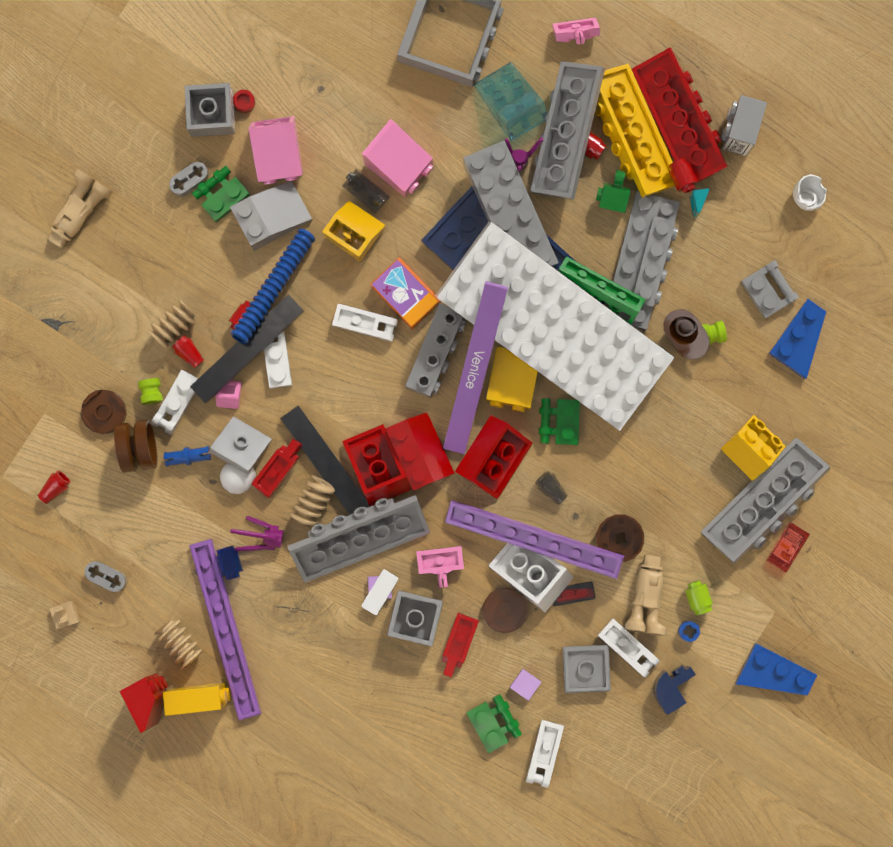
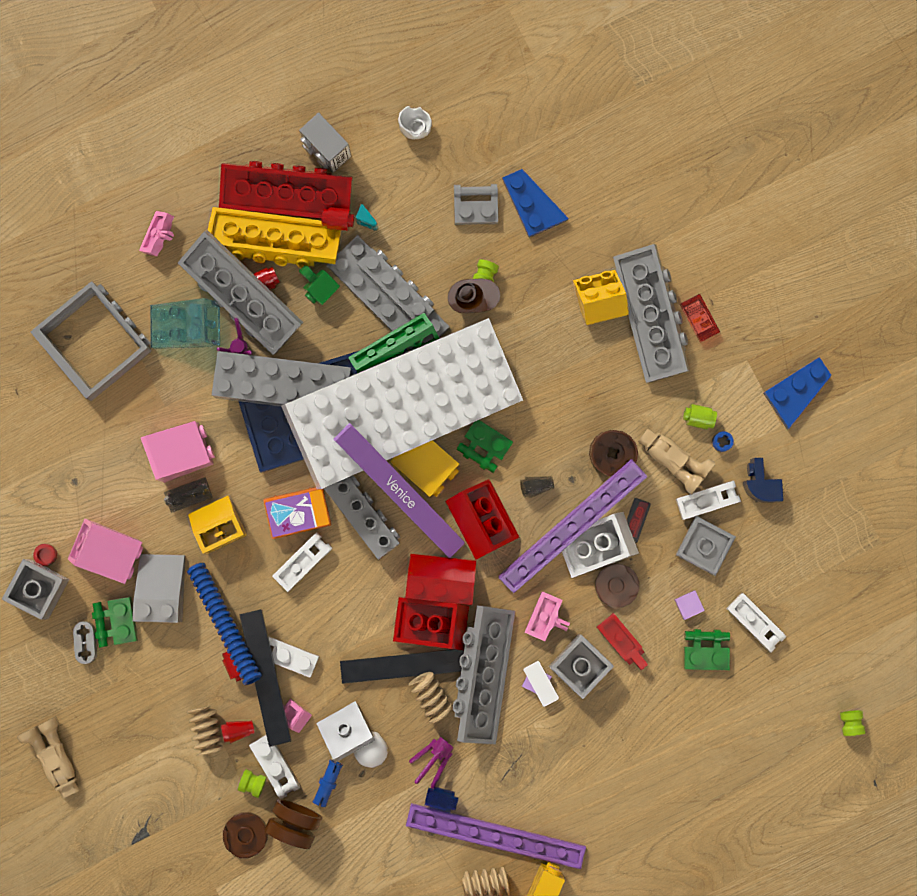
camera: 65 degrees left, 0 degrees up
(277, 468) = (384, 711): red hinge -> none

